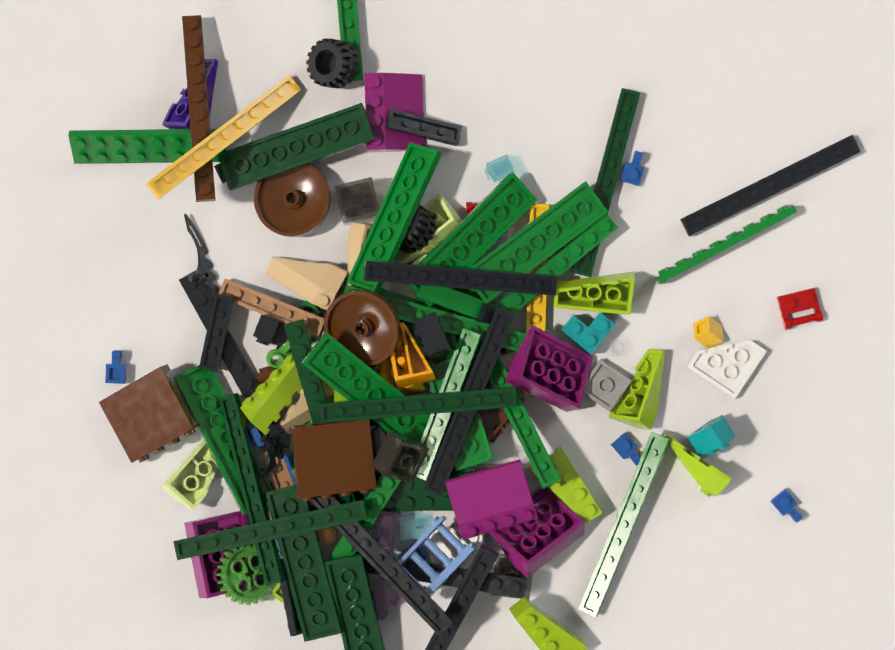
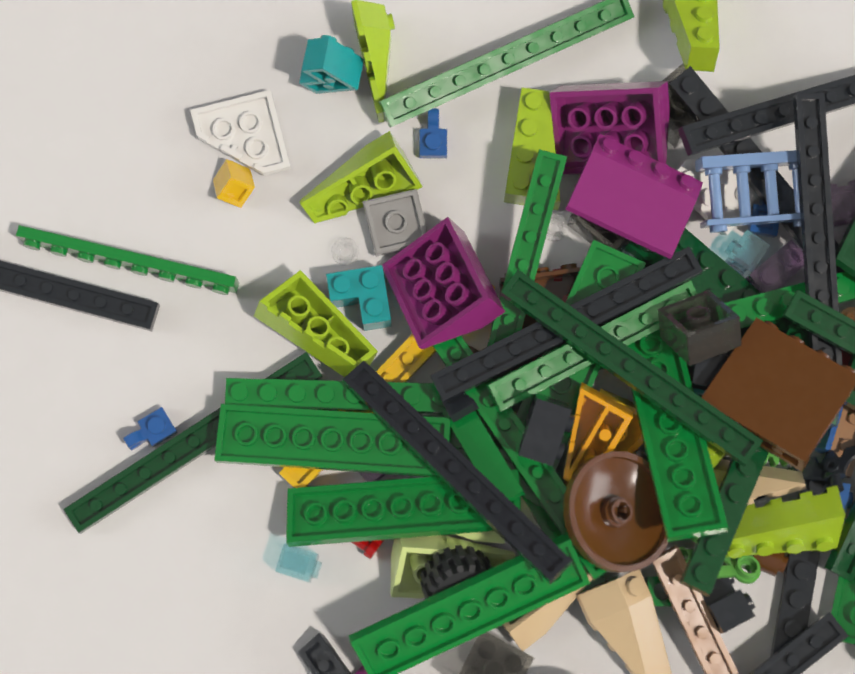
camera: 140 degrees left, 10 degrees down
(797, 302) = (110, 134): red plate -> none

